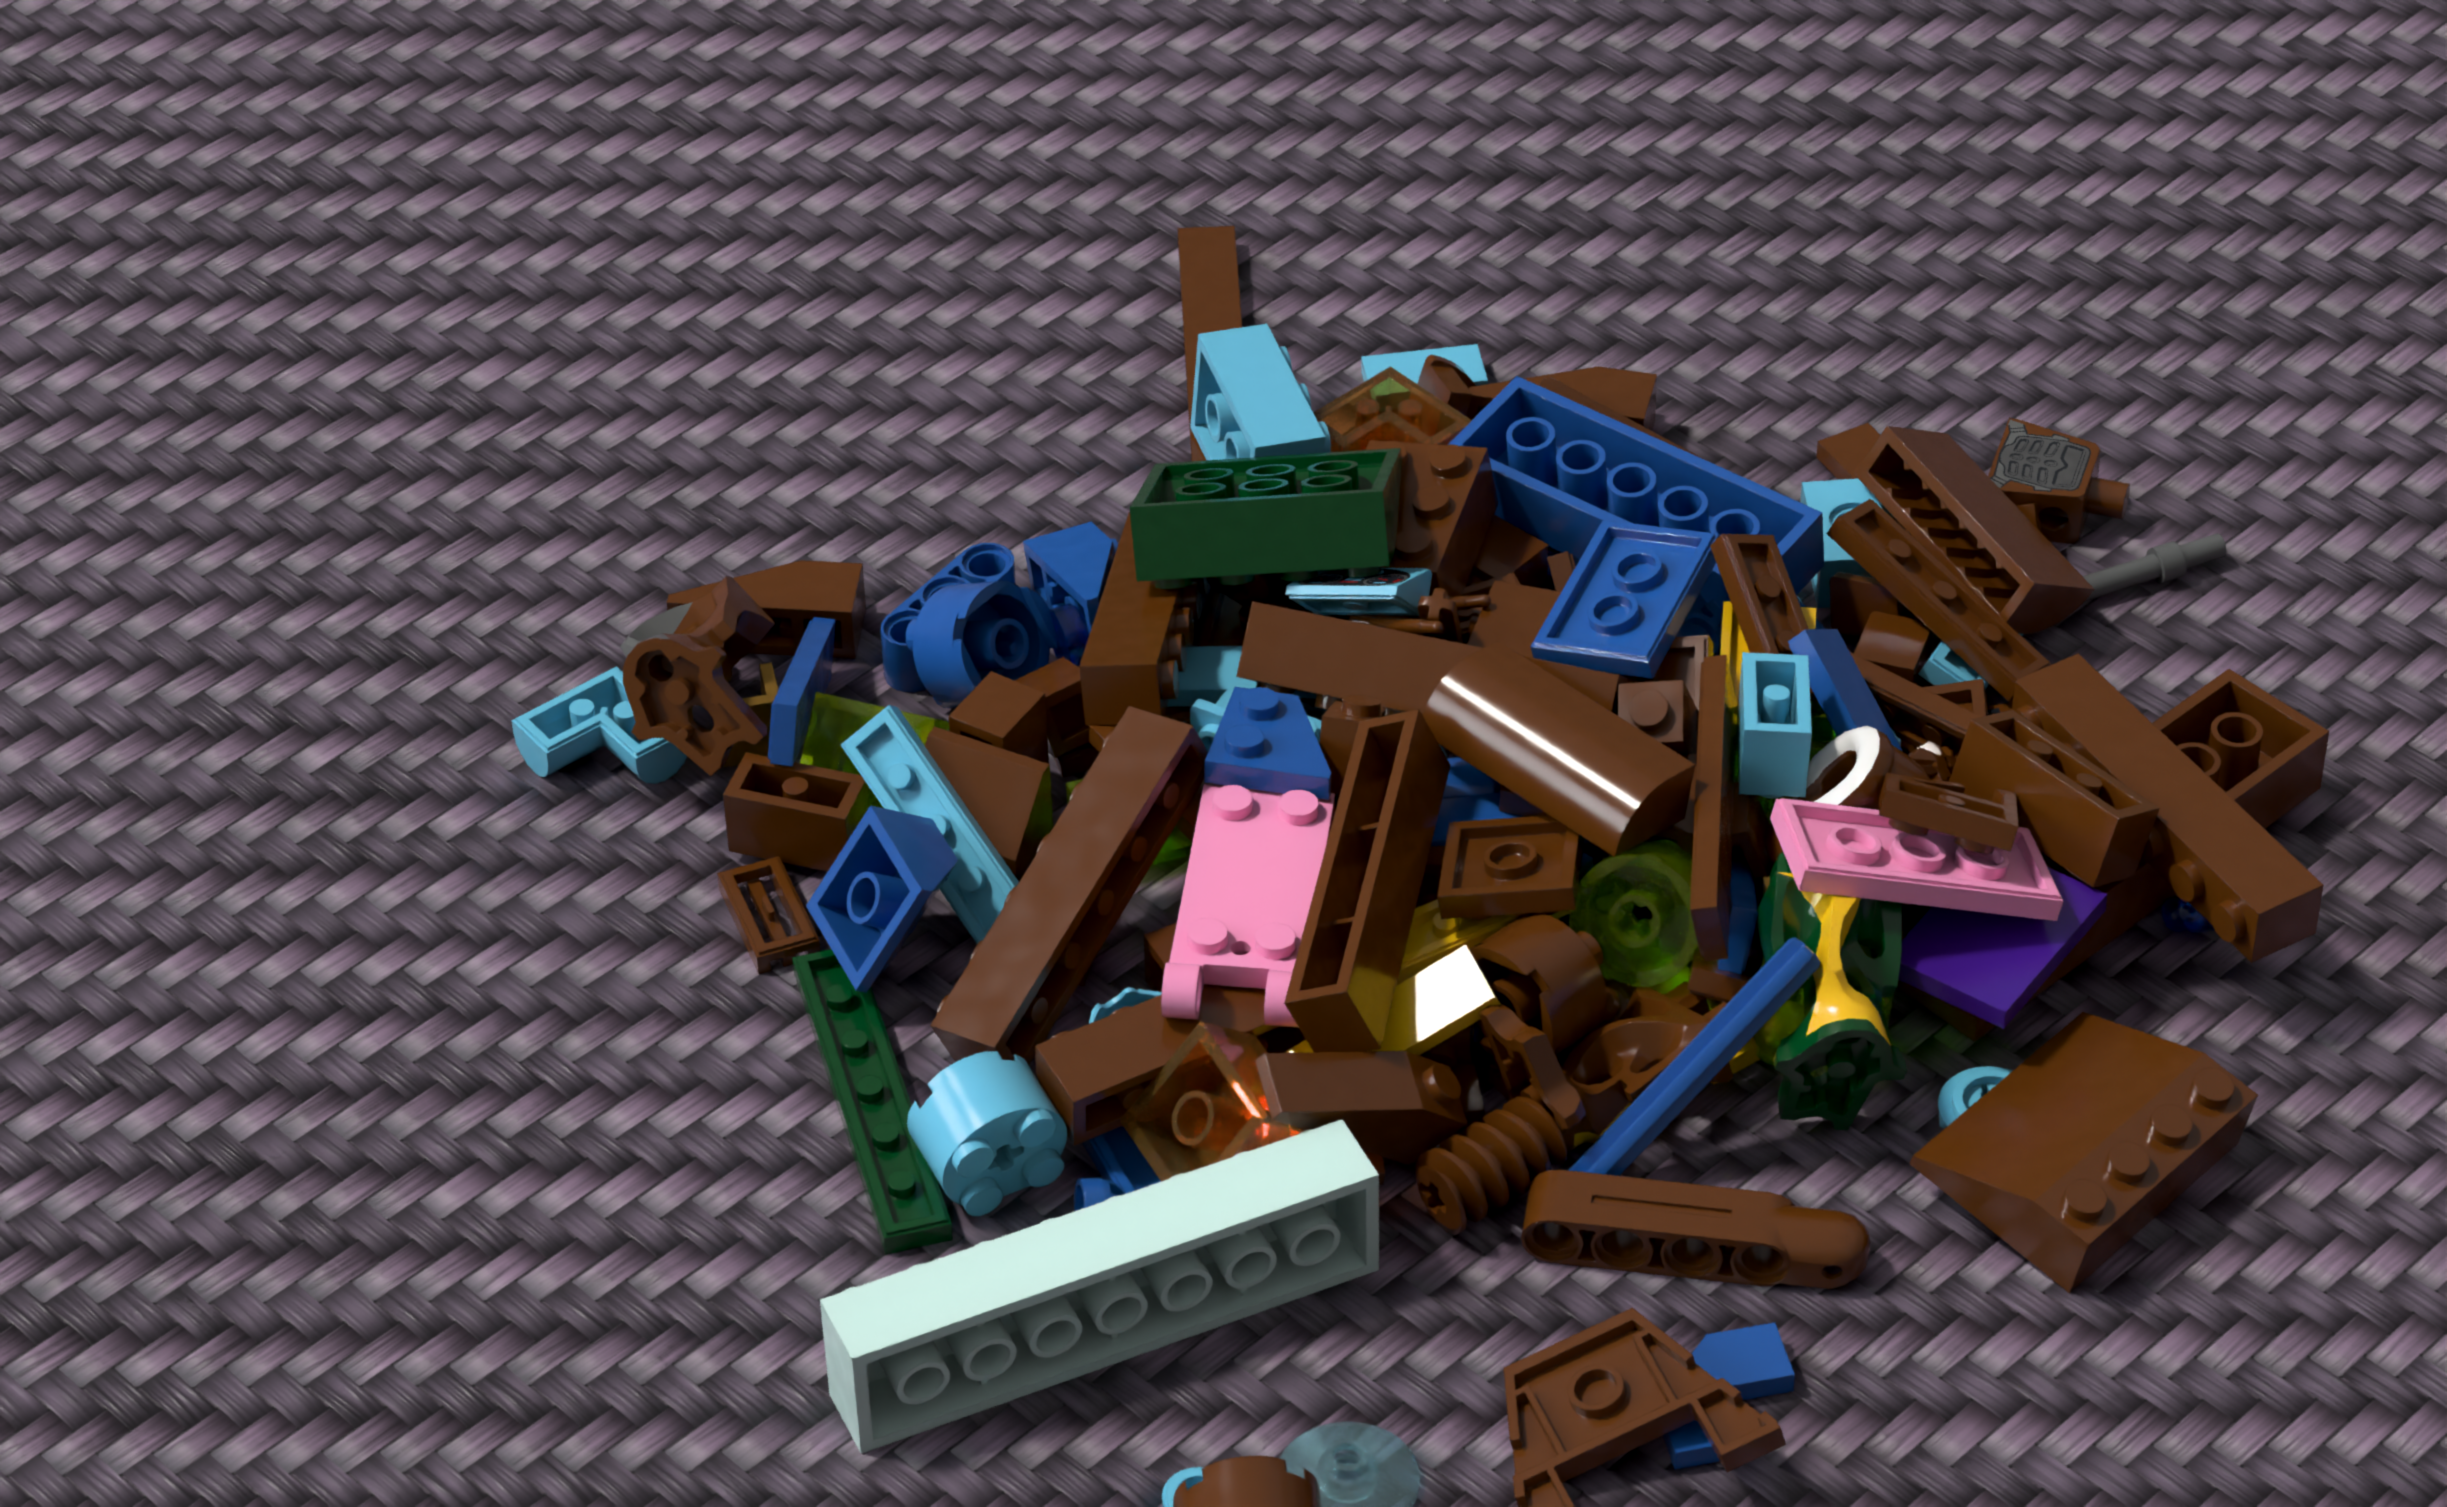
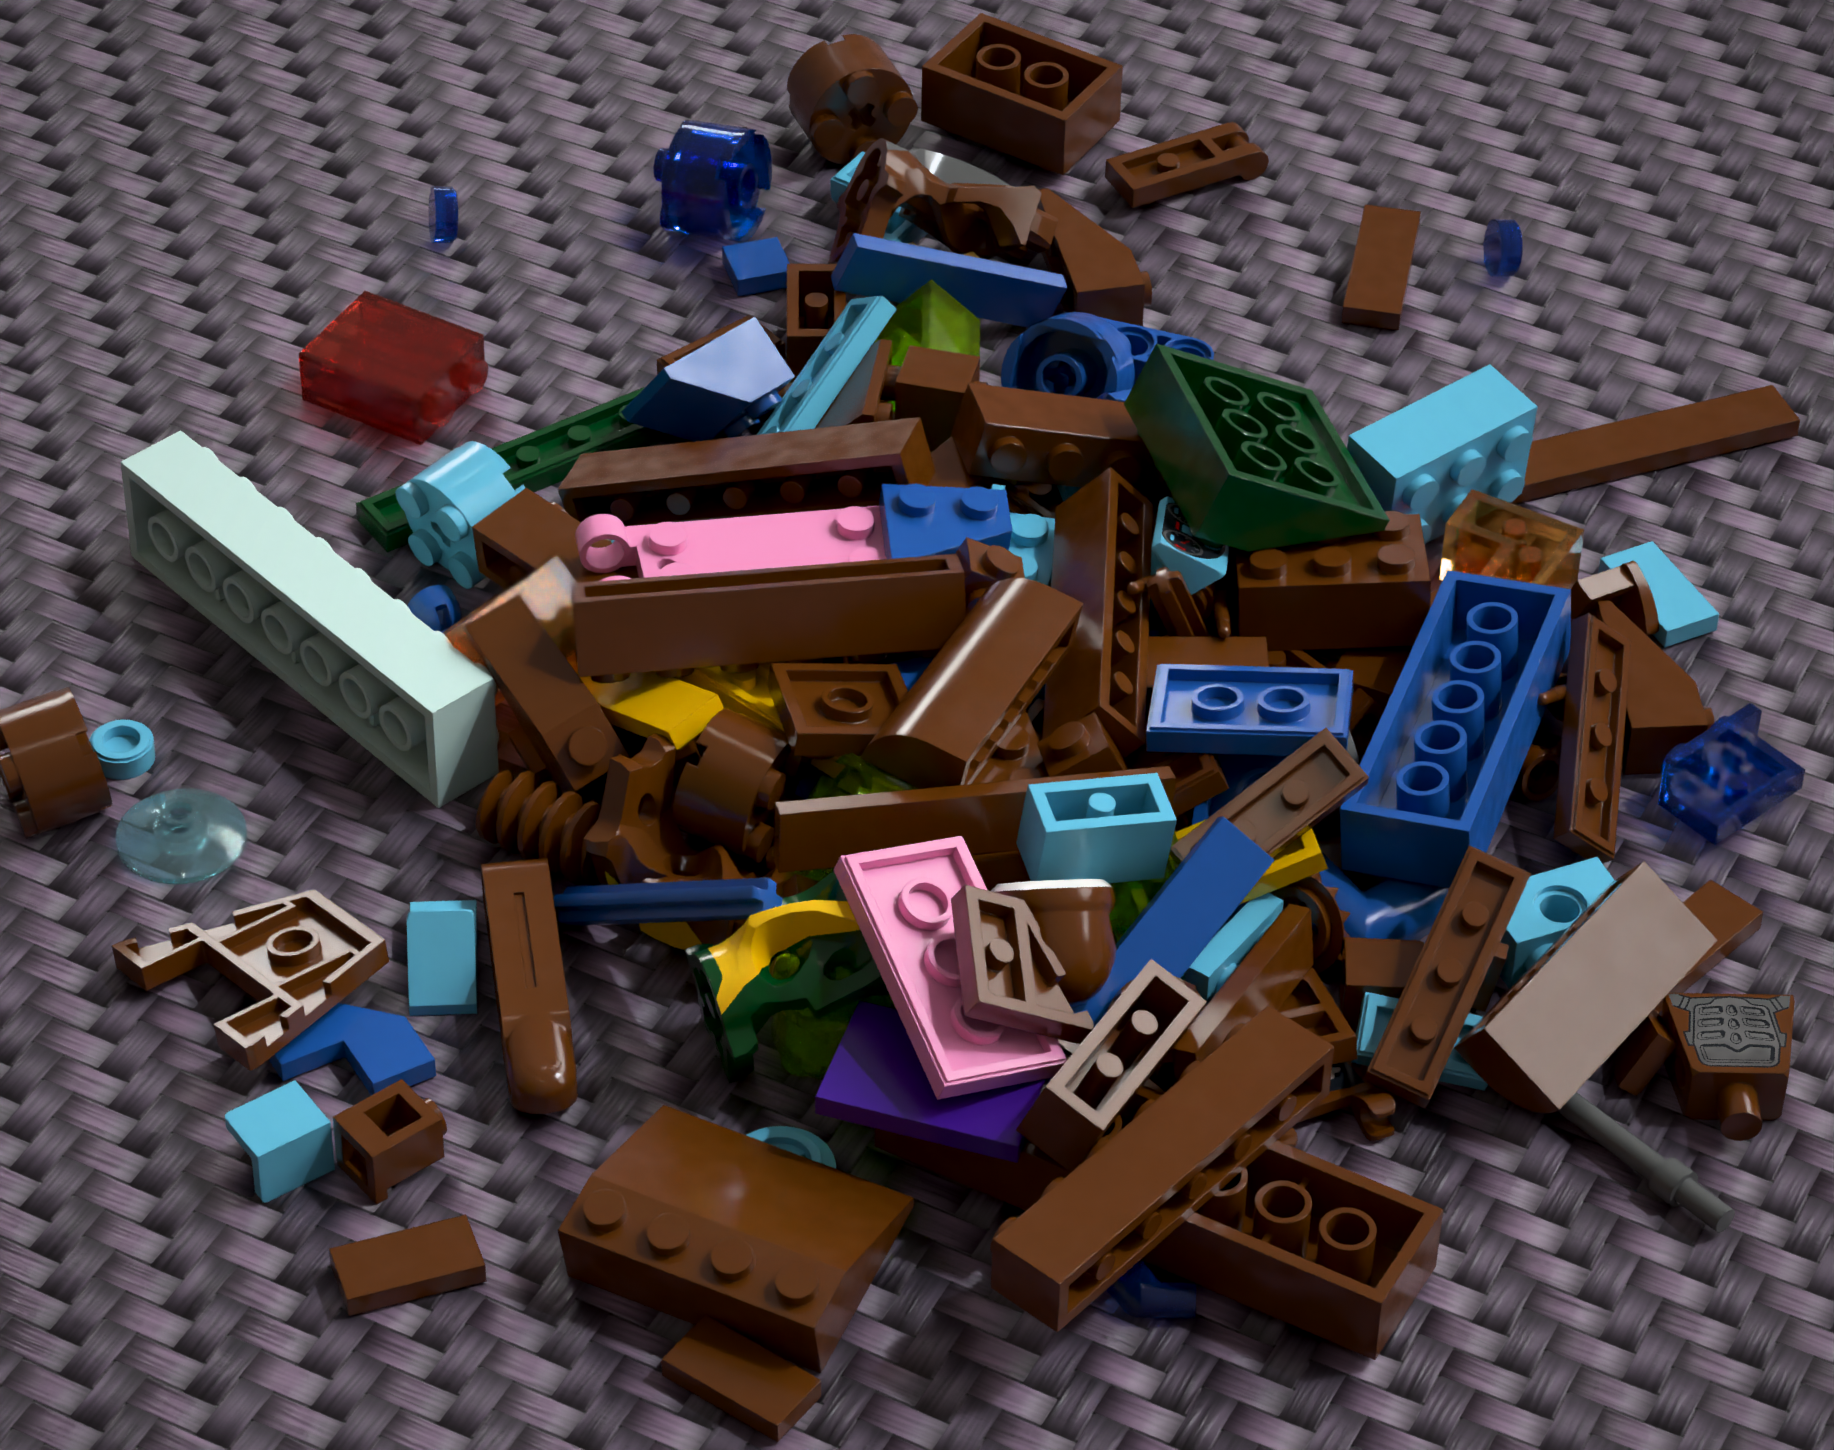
camera: 70 degrees right, 0 degrees up
(416, 1076) = (443, 214): none -> clear blue tile
(434, 703) = (849, 97): none -> reddish brown brick
(482, 583) = (1021, 93): none -> reddish brown brick
(510, 835) = (713, 180): none -> clear blue brick
(629, 854) = (756, 266): none -> blue tile
(640, 511) = (1185, 164): none -> reddish brown plate
(675, 1162) = (393, 367): none -> clear red brick
(867, 423) = (1381, 267): none -> reddish brown tile
(894, 334) = (1502, 247): none -> clear blue tile
(1591, 1289) = (442, 957): none -> medium azure slope
(1702, 395) = (1726, 777): none -> clear blue bracket
(1863, 1441) = (284, 1138): none -> medium azure panel
(1888, 1371) = (388, 1138): none -> reddish brown brick
(2039, 1398) = (407, 1265): none -> reddish brown tile
(2244, 1190) = (741, 1378): none -> reddish brown tile

